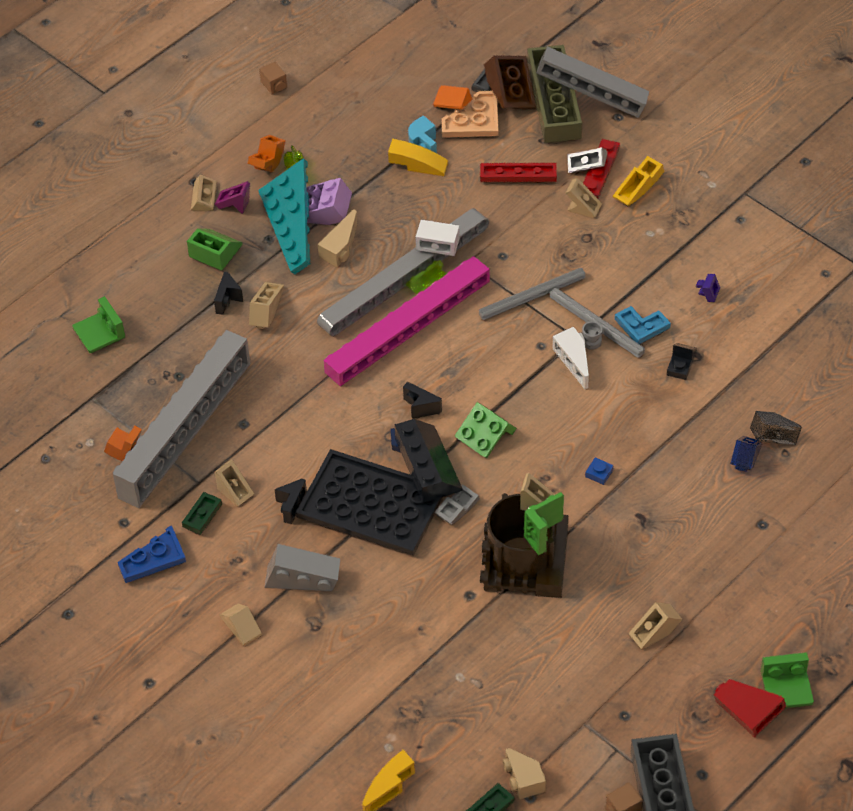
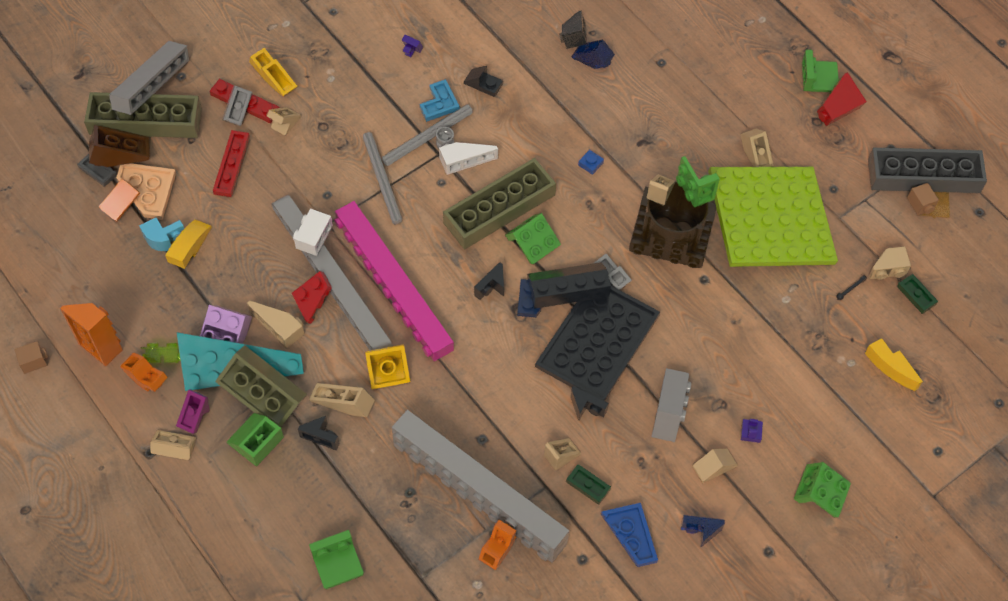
camera: 85 degrees left, 10 degrees up
(163, 618) = (707, 526): none -> clear blue slope
(221, 725) = (823, 487): none -> bright green bracket
(264, 236) = (260, 386): none -> olive slope
(285, 654) = (751, 430): none -> dark purple tile
(289, 101) = (93, 330): none -> orange slope
(306, 332) = (387, 366): none -> yellow slope
(375, 258) = (312, 295): none -> red wing
(426, 277) = (343, 257): clear neon green hinge -> none
(473, 729) = (840, 296): none -> black hinge
(517, 390) = (499, 203): none -> olive brick
(562, 646) = (772, 217): none -> lime plate

